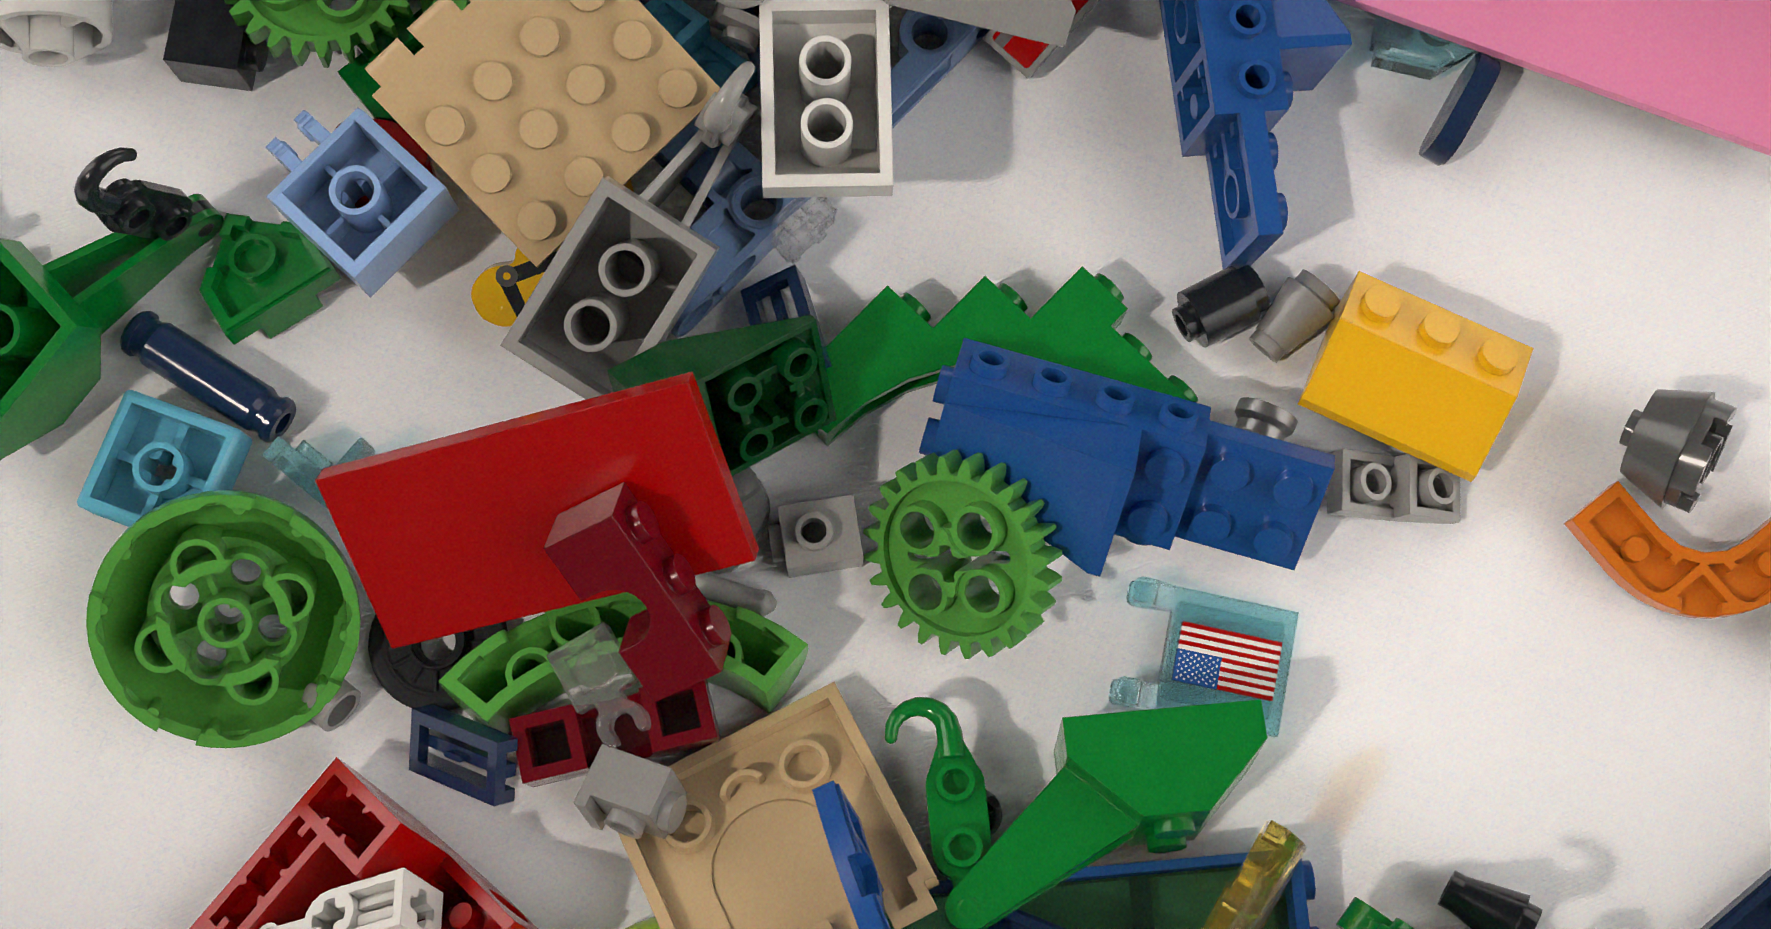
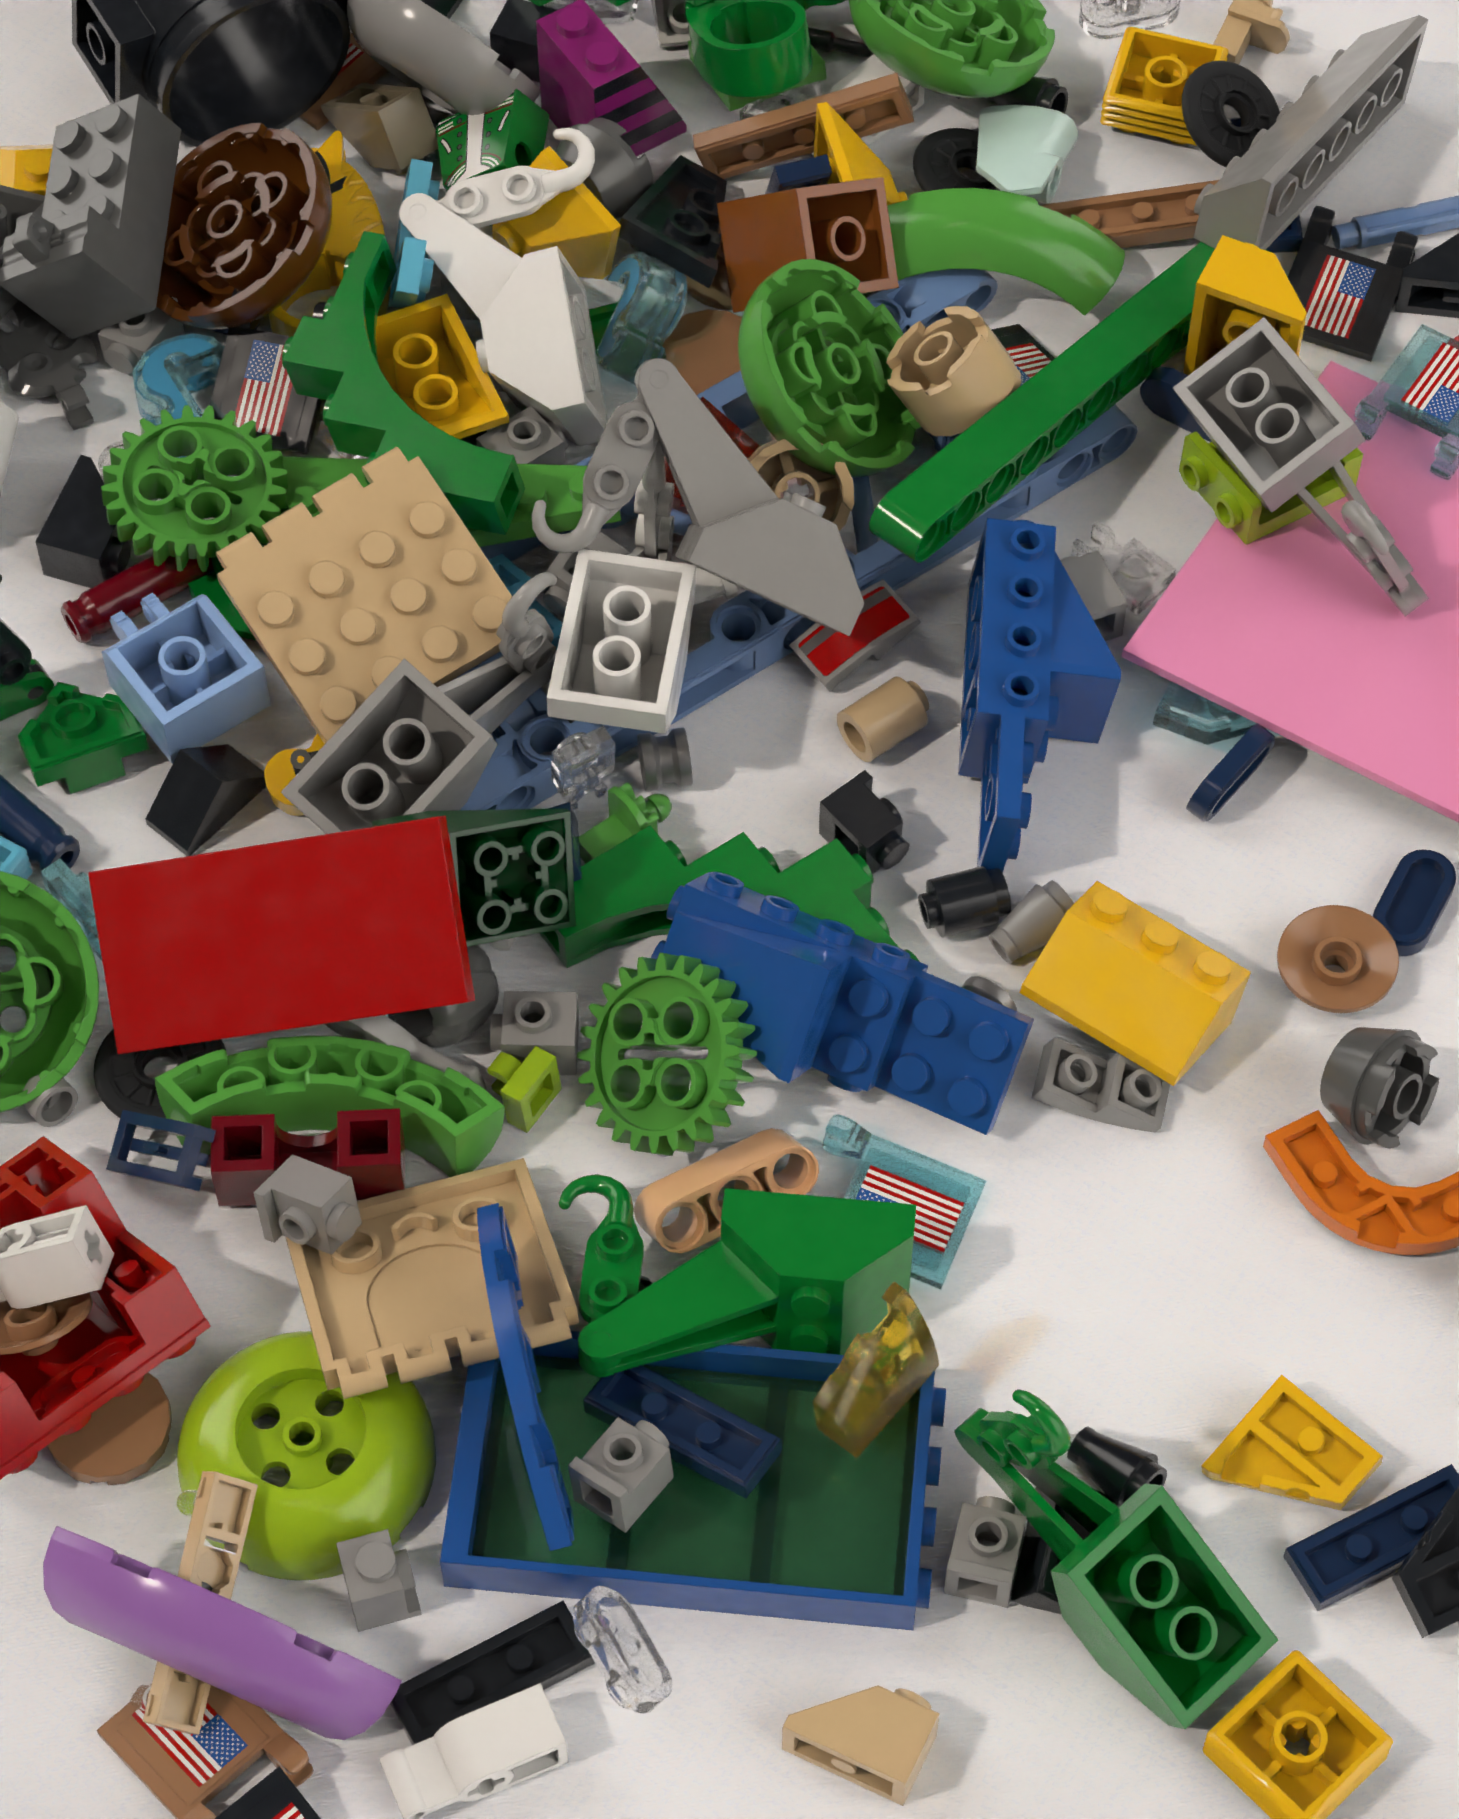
camera: 15 degrees right, 20 degrees down
(273, 100) = (124, 592): none -> dark red axle
(412, 317) = (203, 794): none -> black slope
(597, 677) = (302, 1094): clear plate -> none
(619, 546) = (350, 958): dark red arch -> none
(818, 600) = (526, 1085): none -> lime tile
(858, 281) = (626, 818): none -> bright green piece
(877, 209) = (664, 759): none -> flat silver wheel
(1045, 681) = (698, 1187): none -> light nougat beam
(1096, 107) = (883, 718): none -> tan brick
(1102, 237) = (864, 823): none -> black brick
(1627, 290) = (1339, 938): none -> medium nougat dish
(1658, 858) = (1294, 1451): none -> yellow wing
(1661, 220) = (1416, 899): none -> dark blue tile

